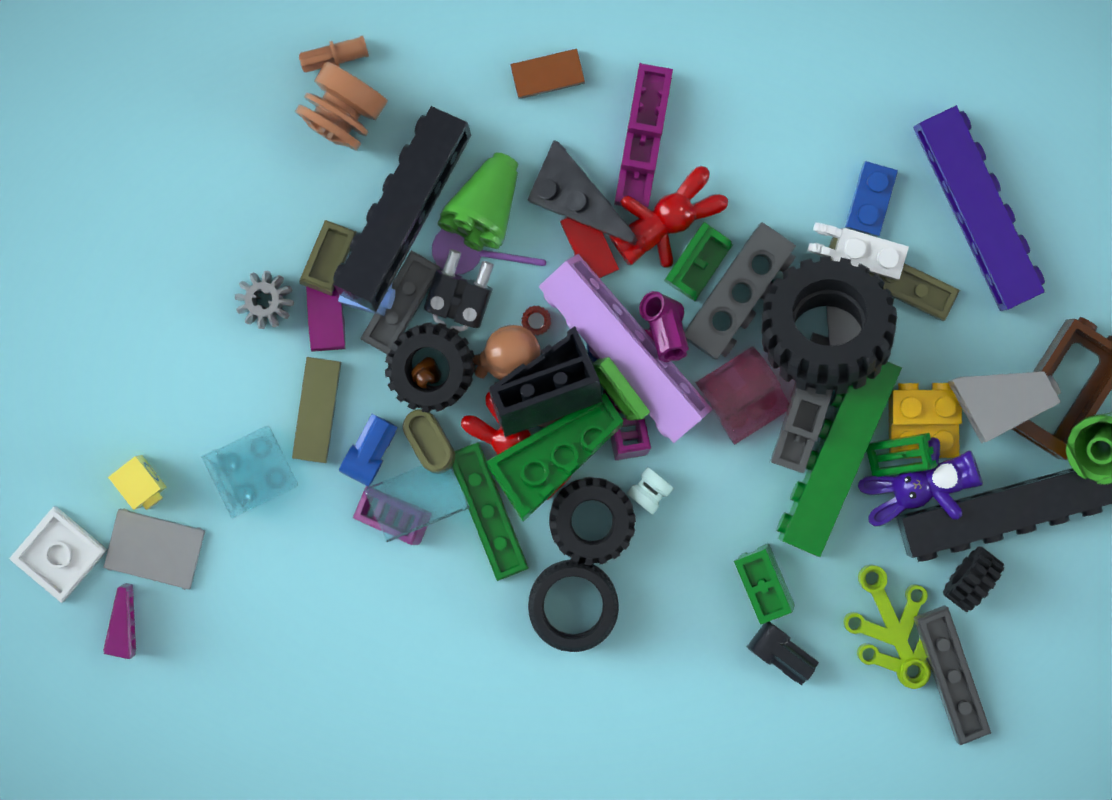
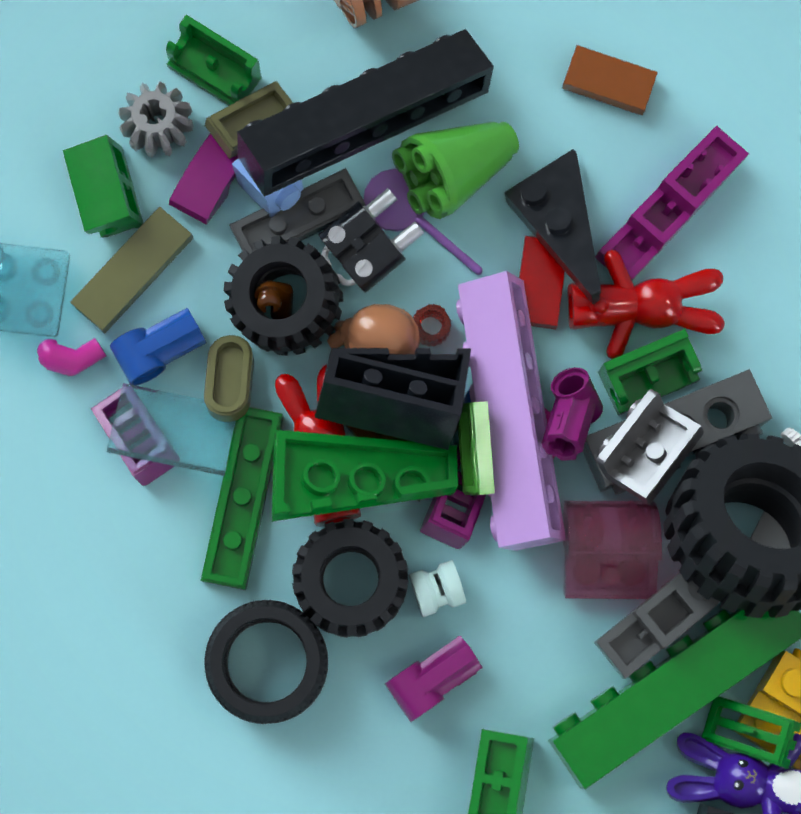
camera: 30 degrees right, 10 degrees down
(261, 368) = (103, 187): none -> green hinge
(275, 236) = (213, 62): none -> green hinge
(315, 497) = (68, 360): none -> dark pink arm
(680, 554) = (425, 683): none -> magenta piece
(729, 319) = (648, 447): none -> flat silver bracket

